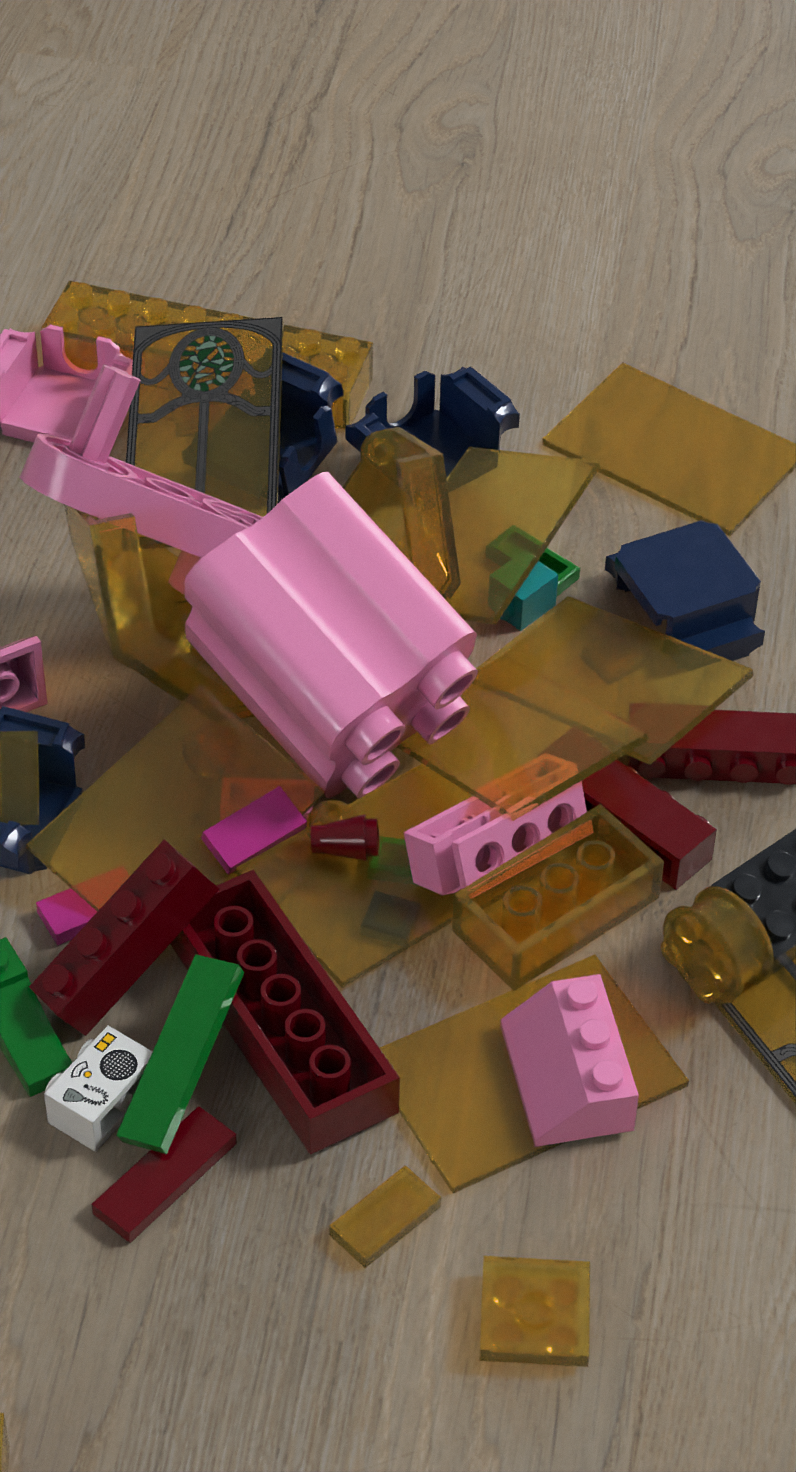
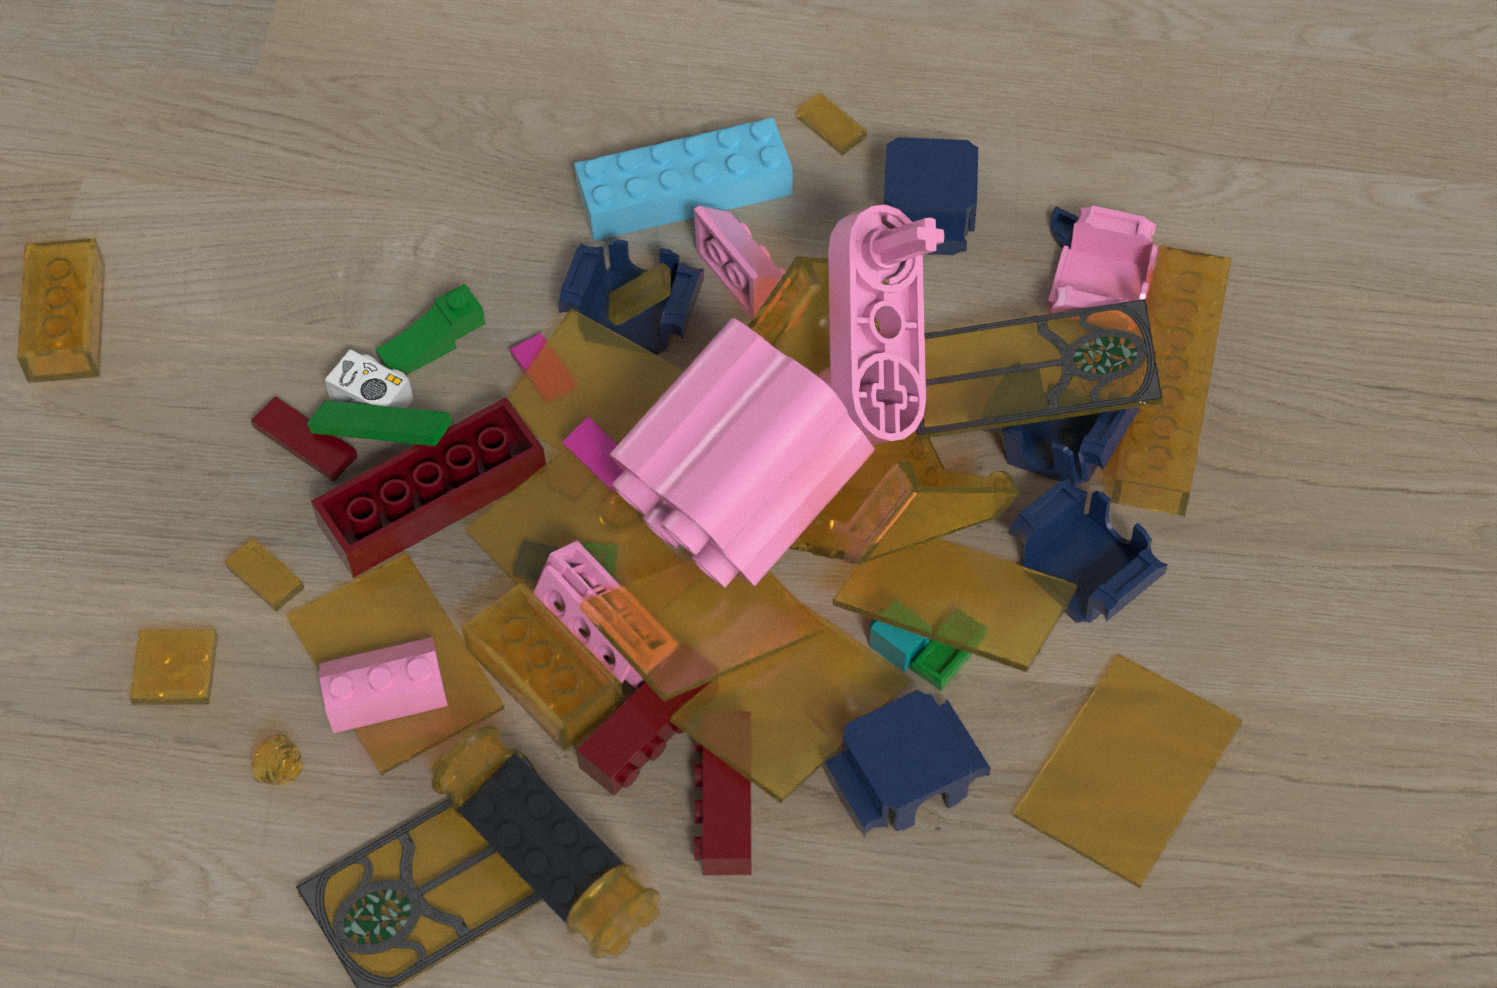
camera: 90 degrees right, 10 degrees up
(124, 938) = (474, 373): dark red brick -> none
(347, 838) = (591, 517): dark red cone -> none
(684, 1179) = (276, 761): none -> clear yellow cone

